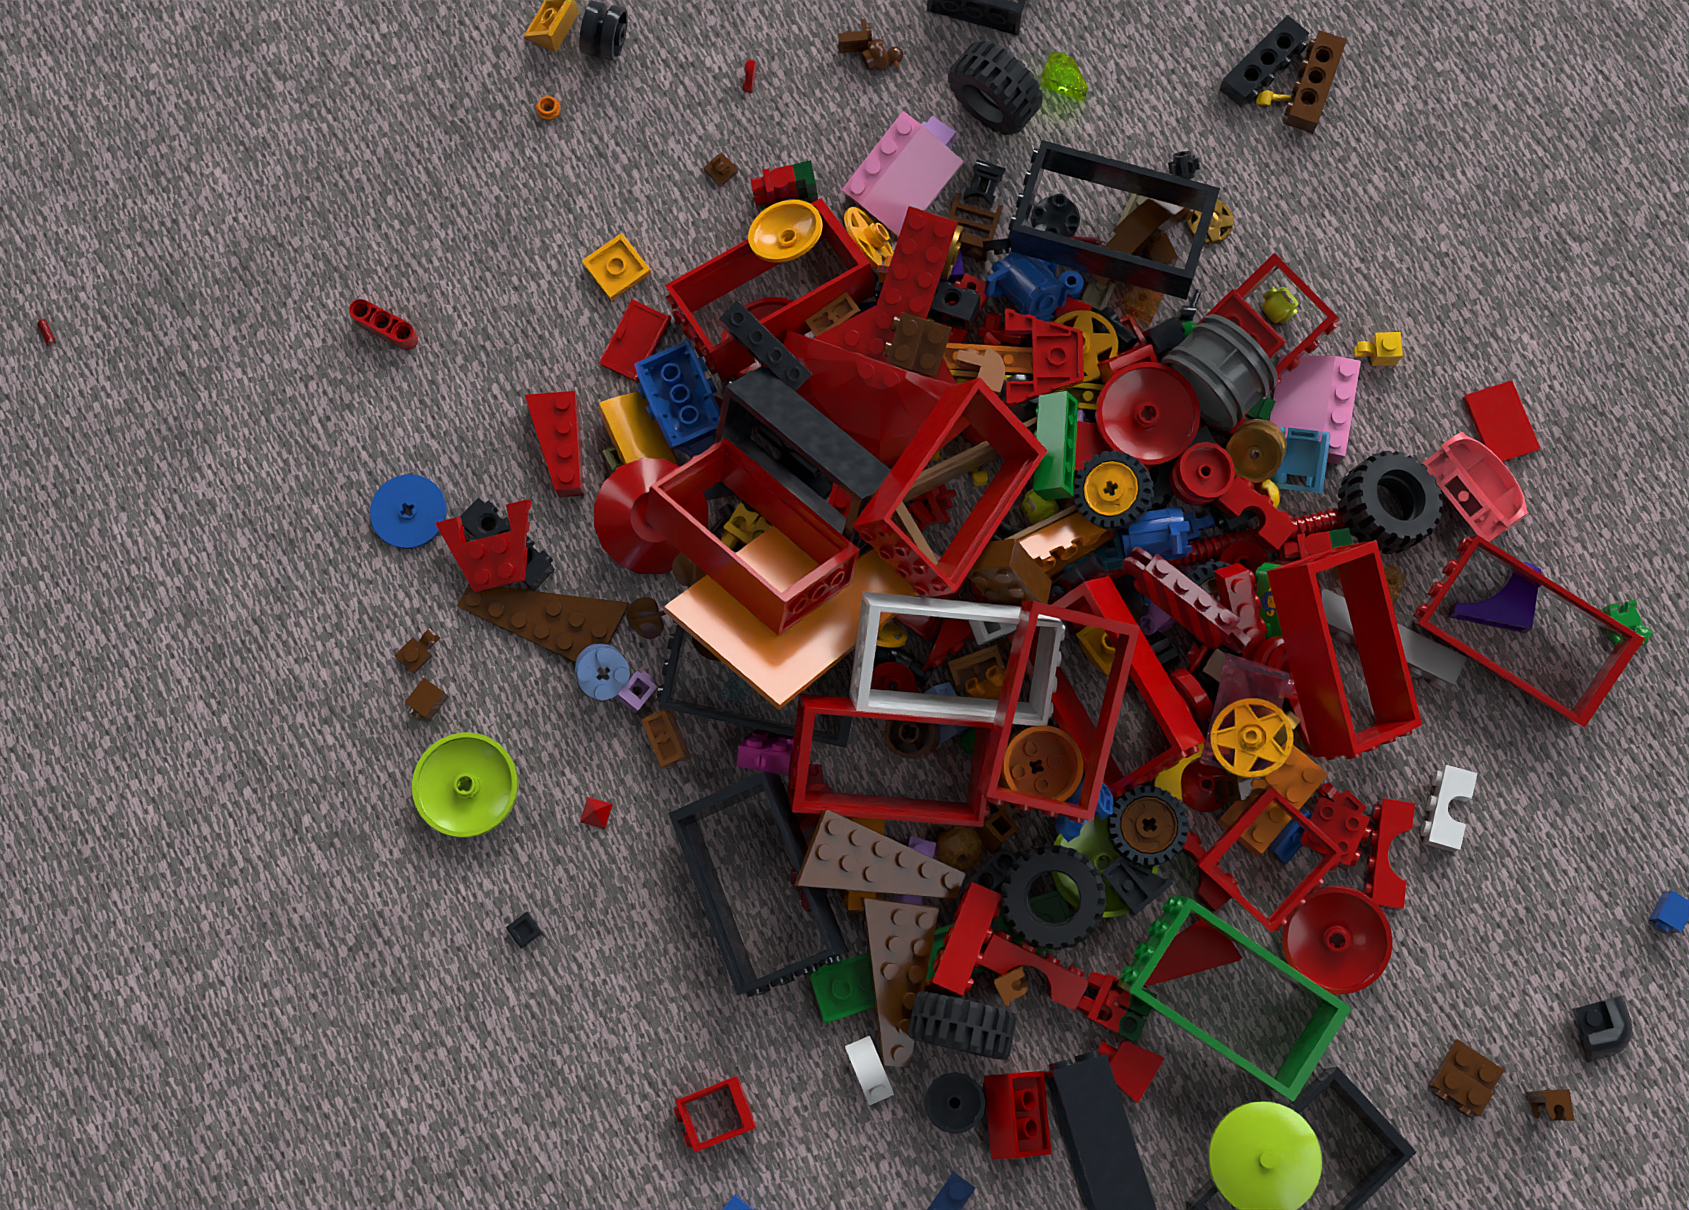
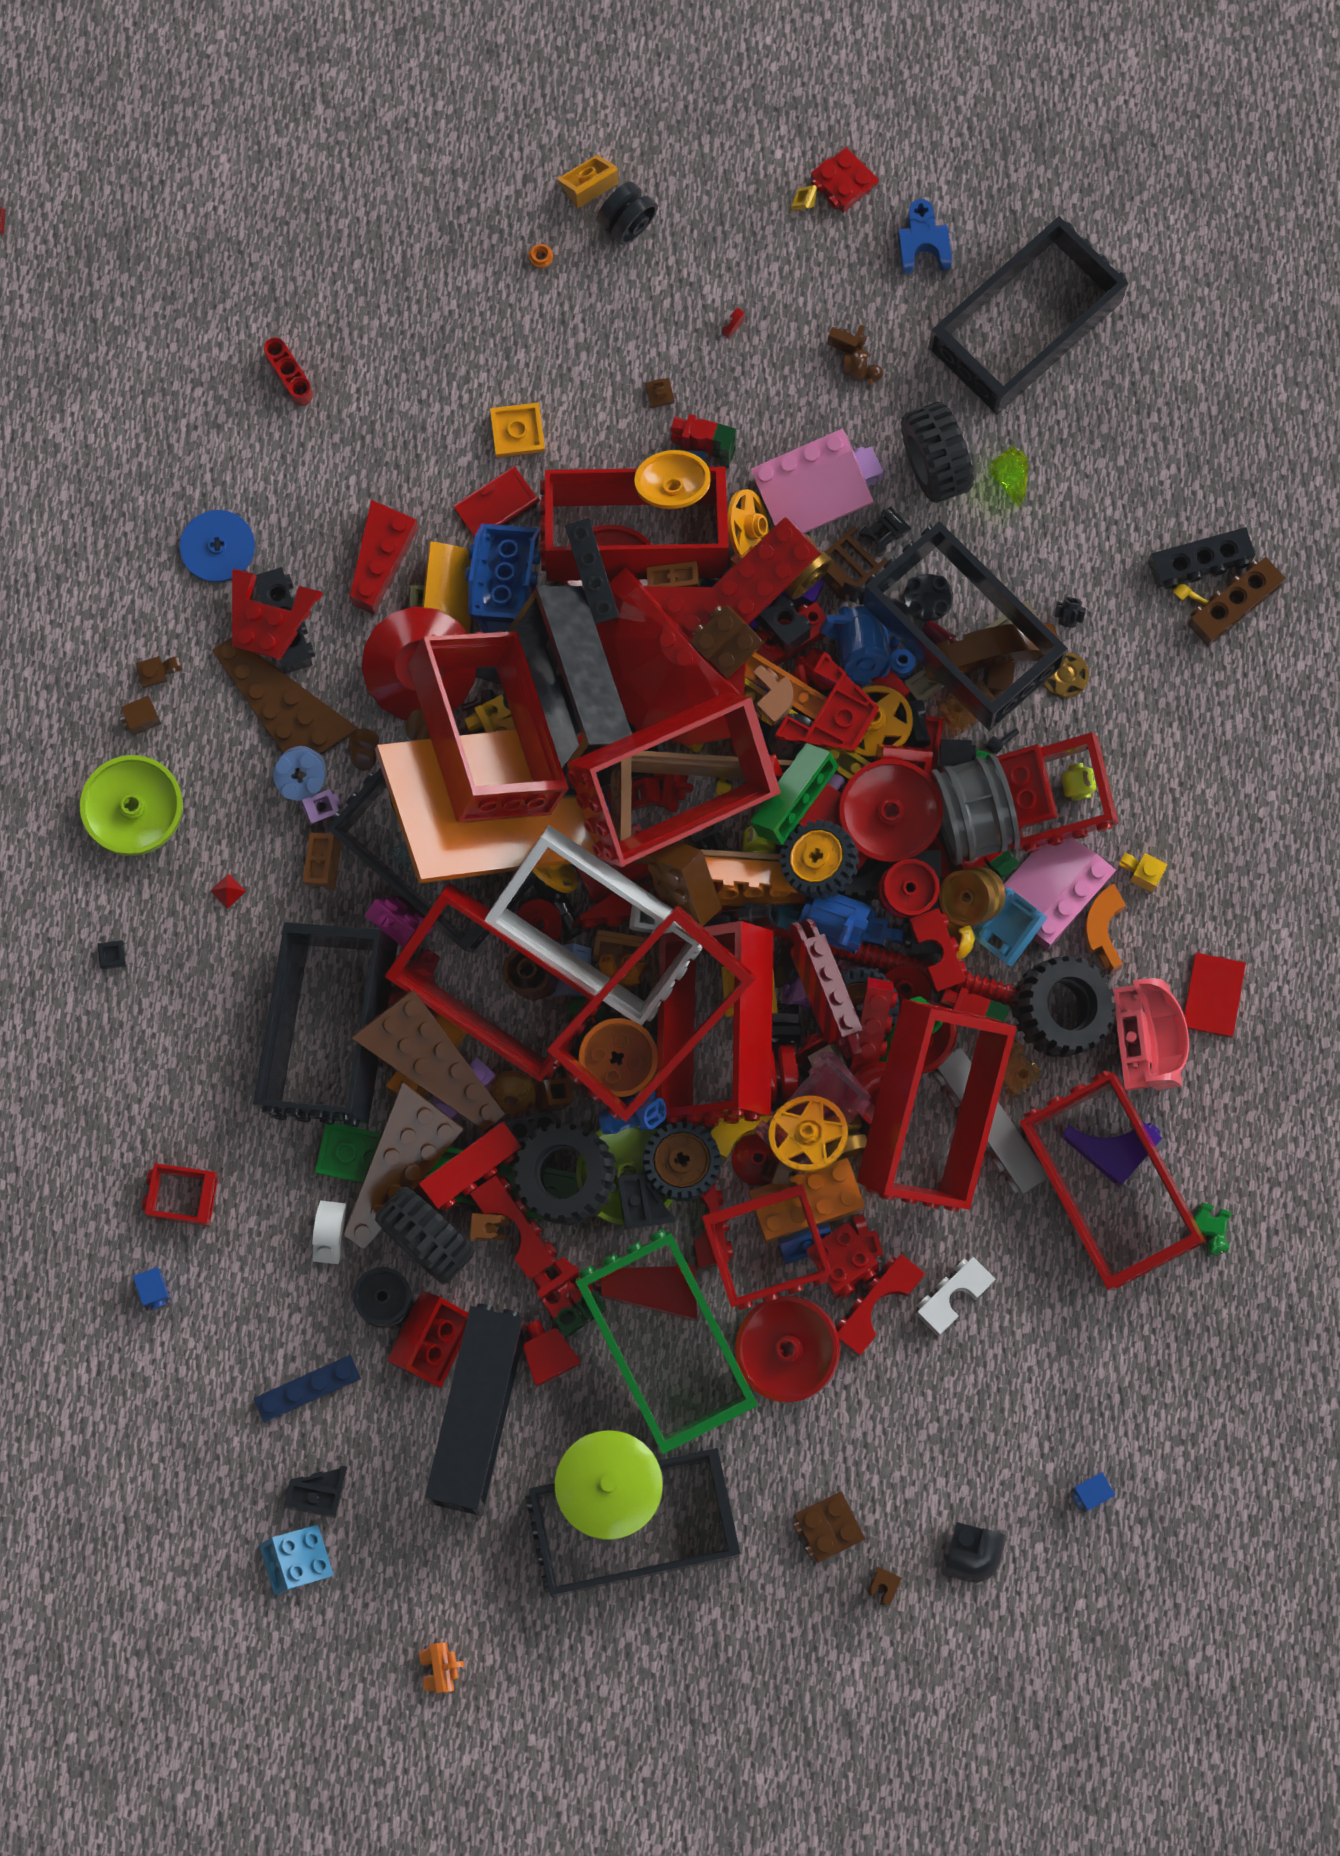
camera: 25 degrees right, 0 degrees up
(1371, 420) = (1096, 927): none -> orange arch

